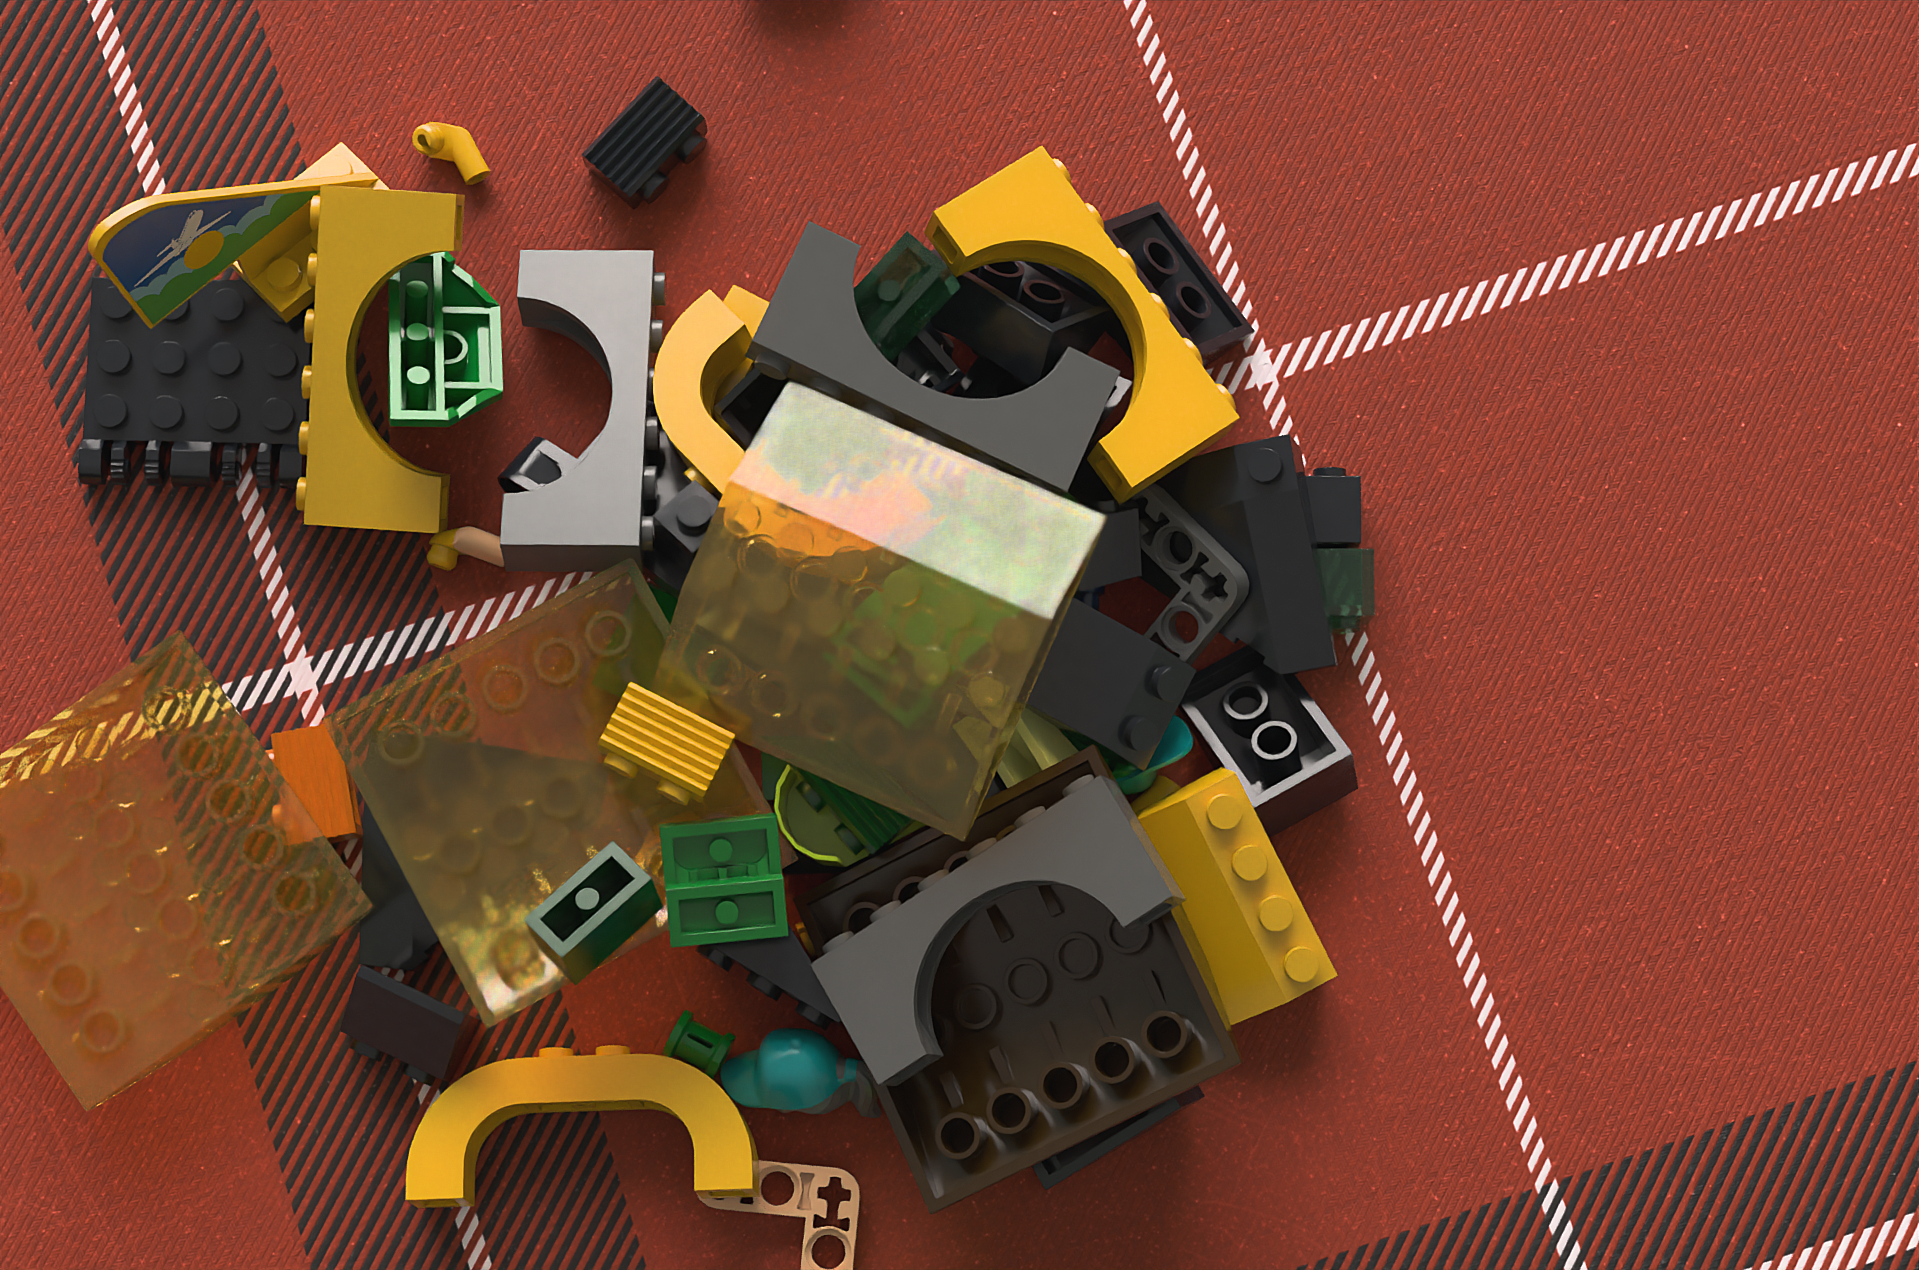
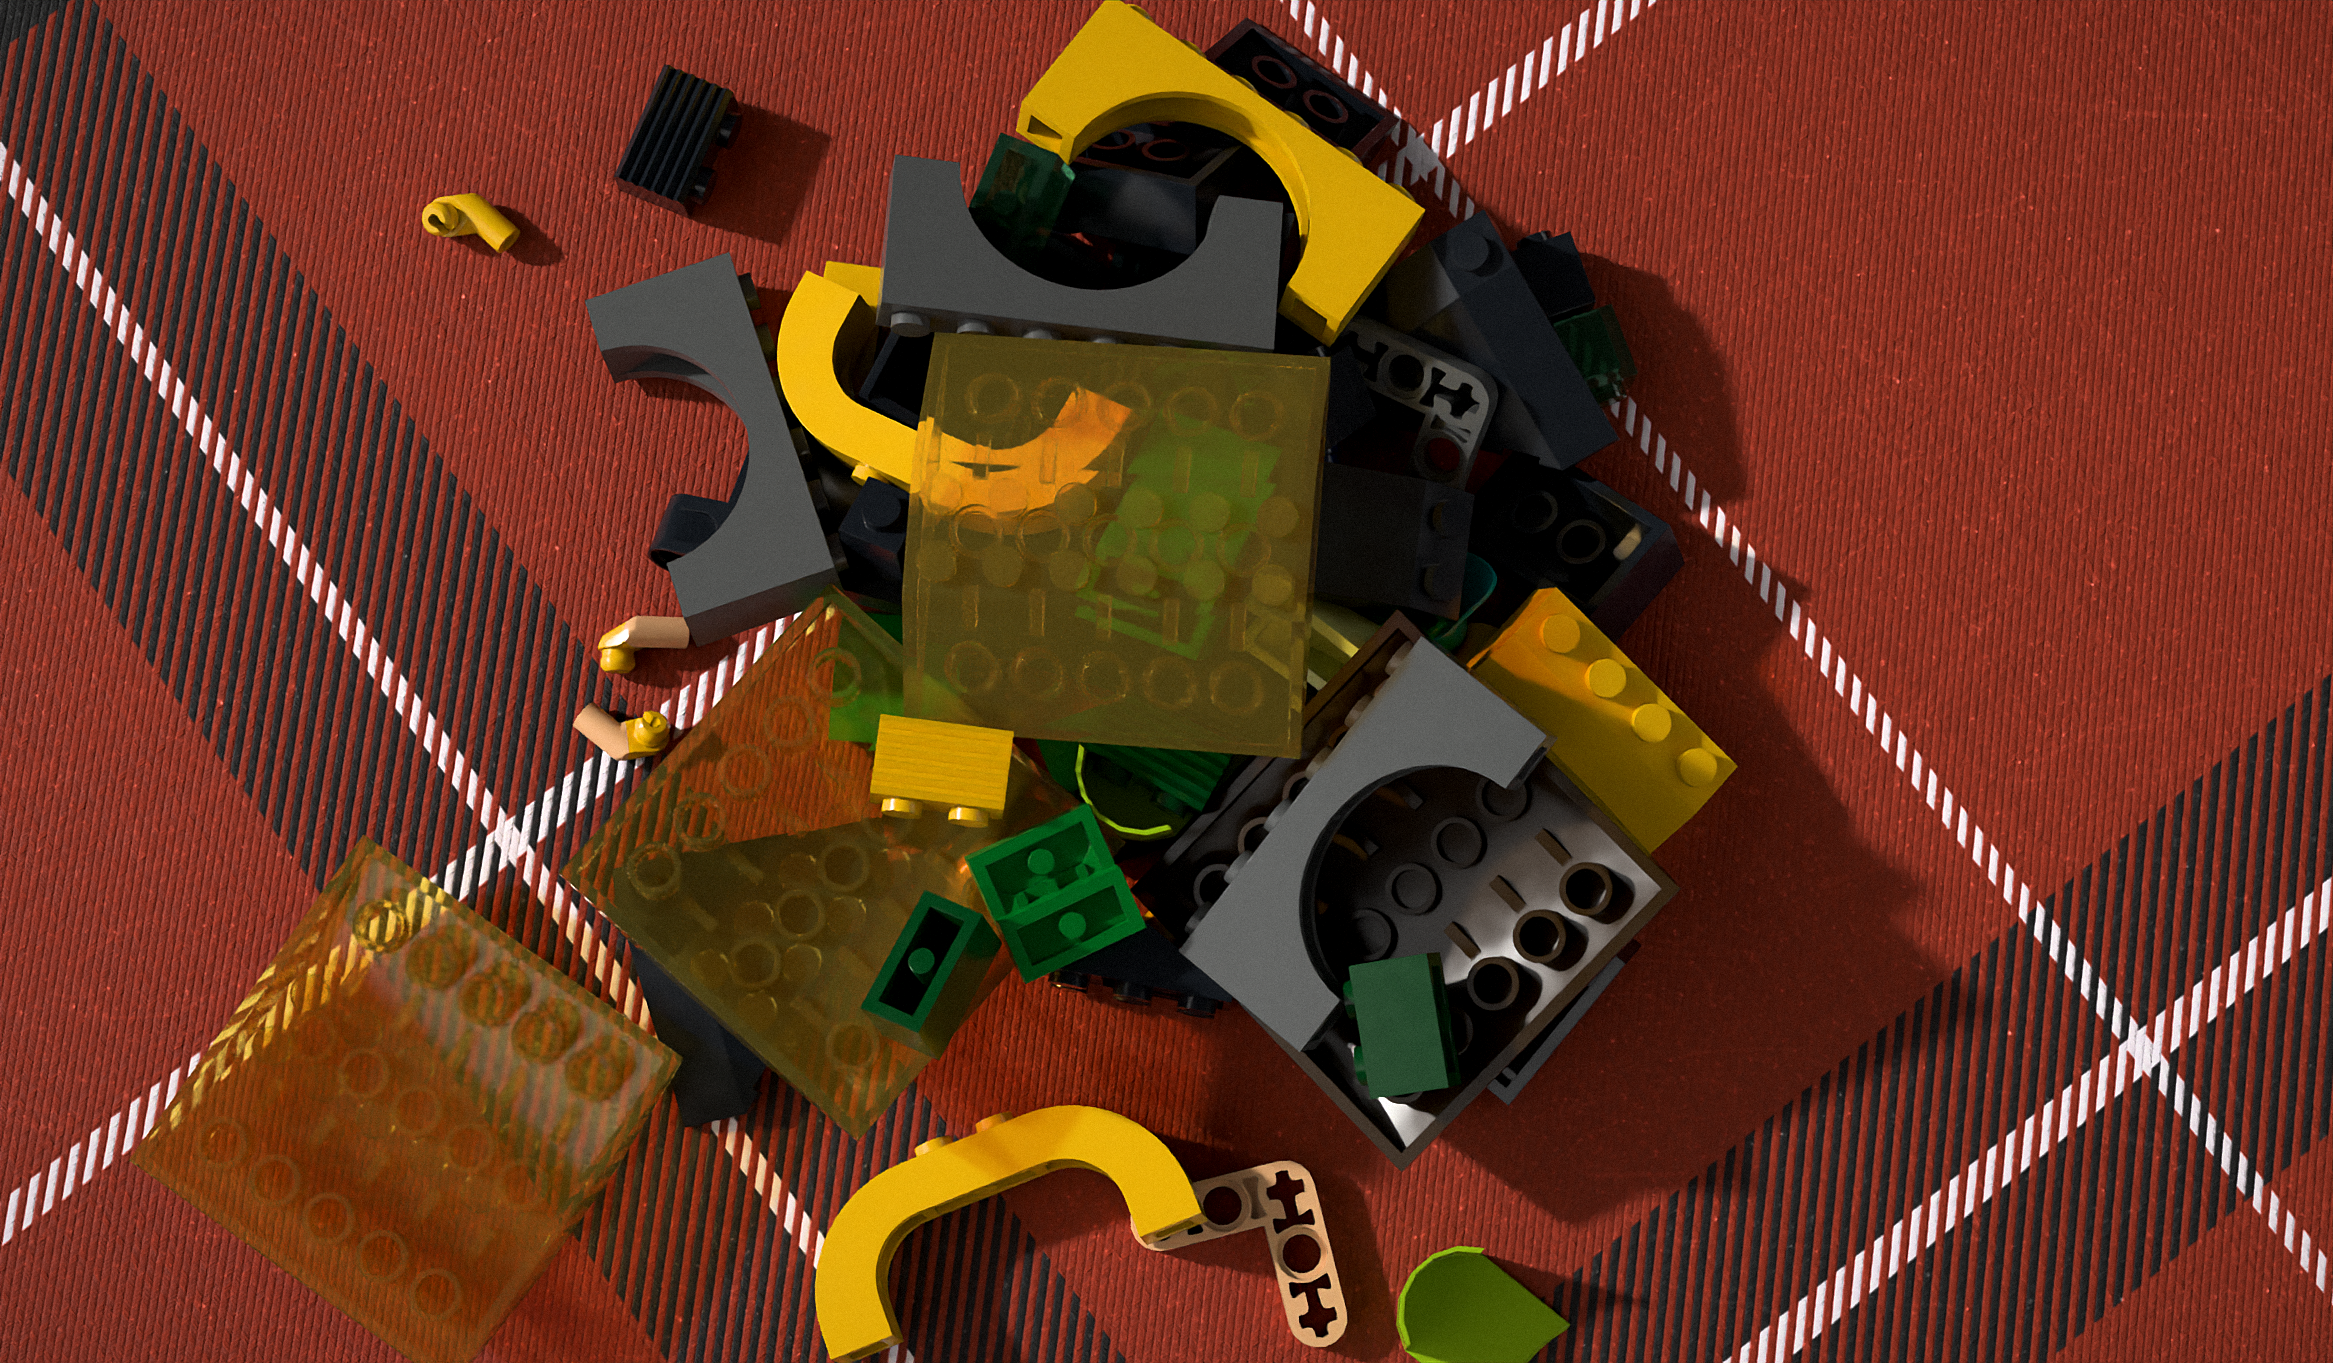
camera: 20 degrees left, 0 degrees up
(179, 242) = (315, 376): piece -> none
(196, 381) = (280, 554): black hinge -> none
(319, 780) = (572, 938): orange brick -> none
(350, 468) = (413, 351): yellow arch -> none
(407, 1025) = (763, 1172): black slope -> none
(426, 625) = (624, 739): none -> arm
(441, 344) = (531, 427): green wedge -> none
(699, 1044) = (1083, 1082): green bush -> none
(799, 1073) = (1204, 1074): teal hair -> none
(972, 1093) = (1402, 1025): none -> dark green brick

